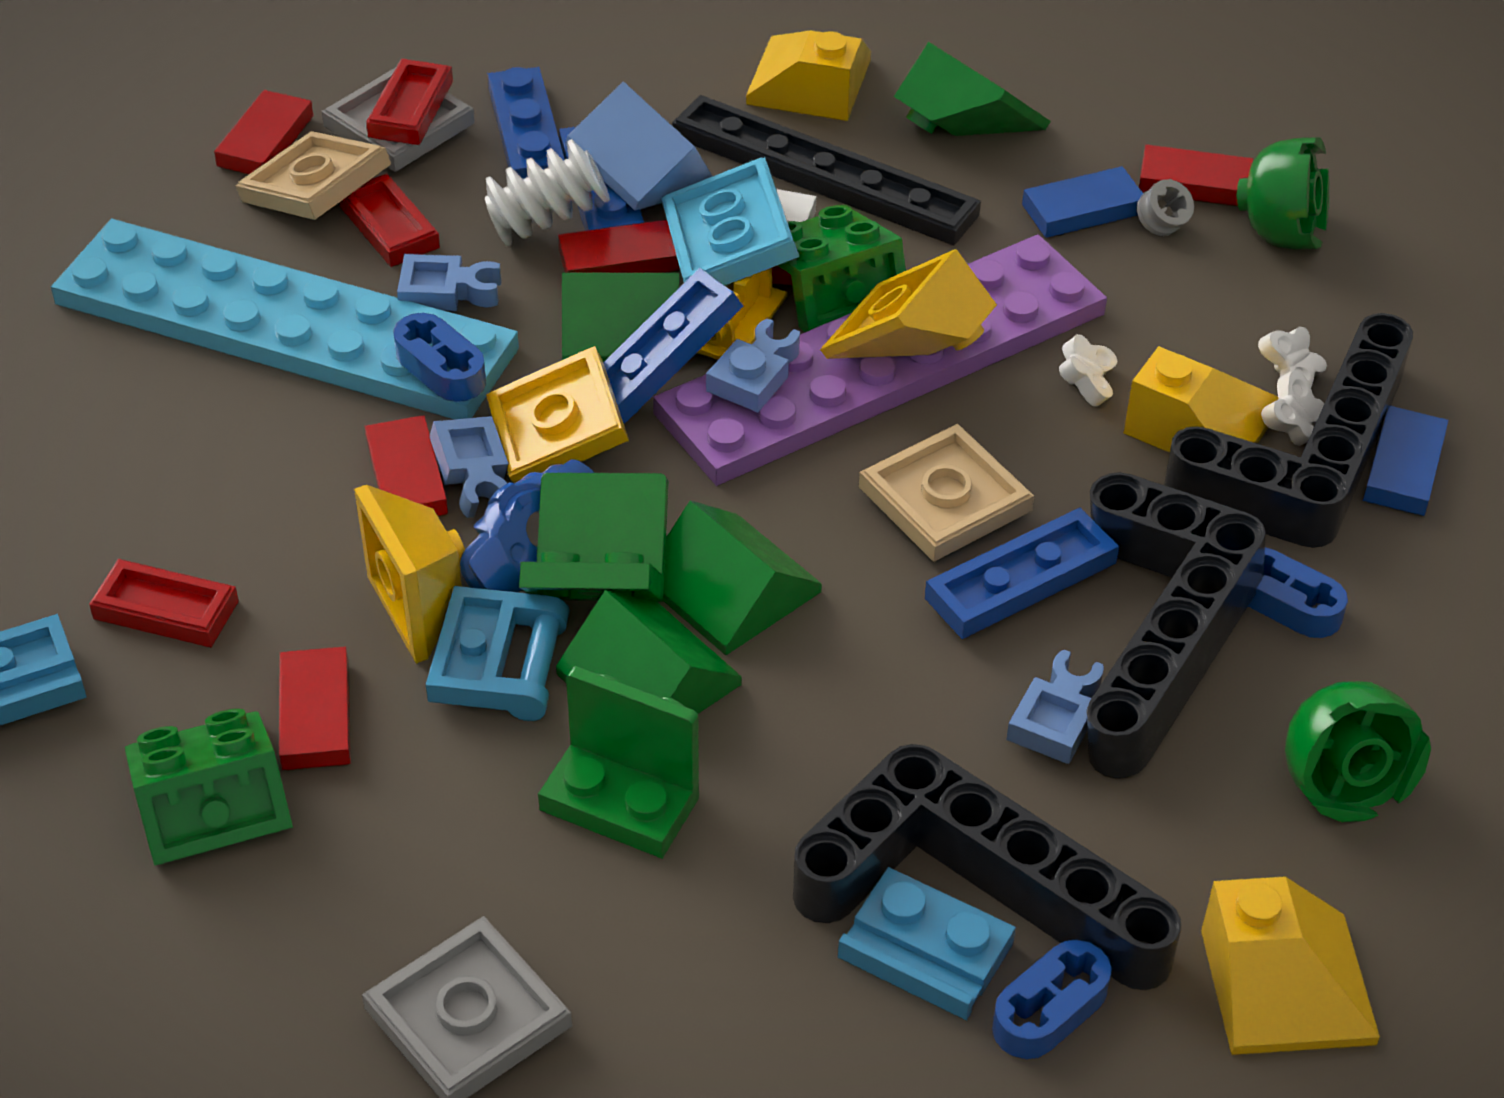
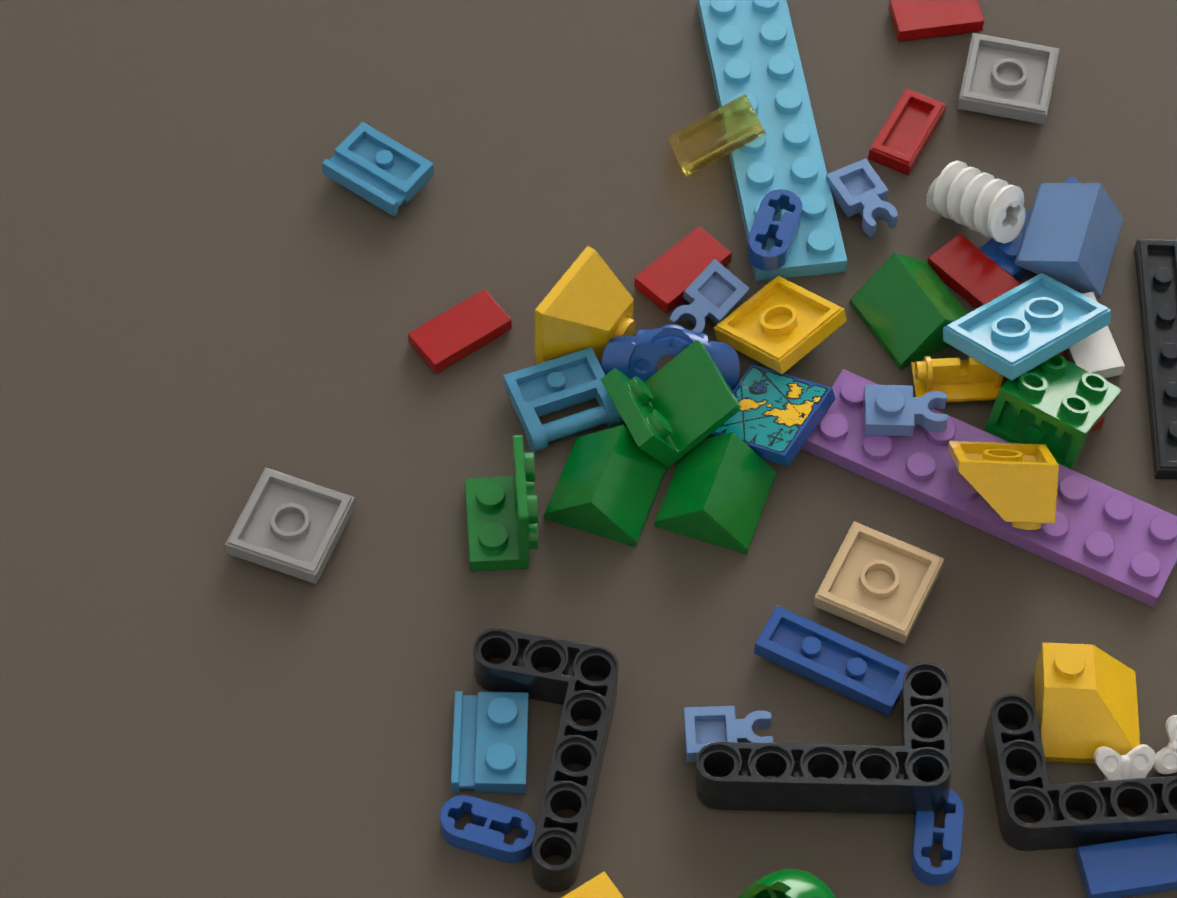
camera: 60 degrees right, 10 degrees up
(164, 603) = (489, 210): red tile -> none
(207, 785) = (361, 306): green bracket -> none
(260, 353) = (716, 135): none -> clear yellow tile
(313, 175) = (909, 65): tan plate -> none
(409, 102) = (1015, 75): red tile -> none
(523, 117) = (1069, 151): blue plate -> none
(668, 340) = (879, 347): blue plate -> none
(687, 455) = (776, 413): none -> tile
(1086, 367) = (1070, 616): white piece -> none

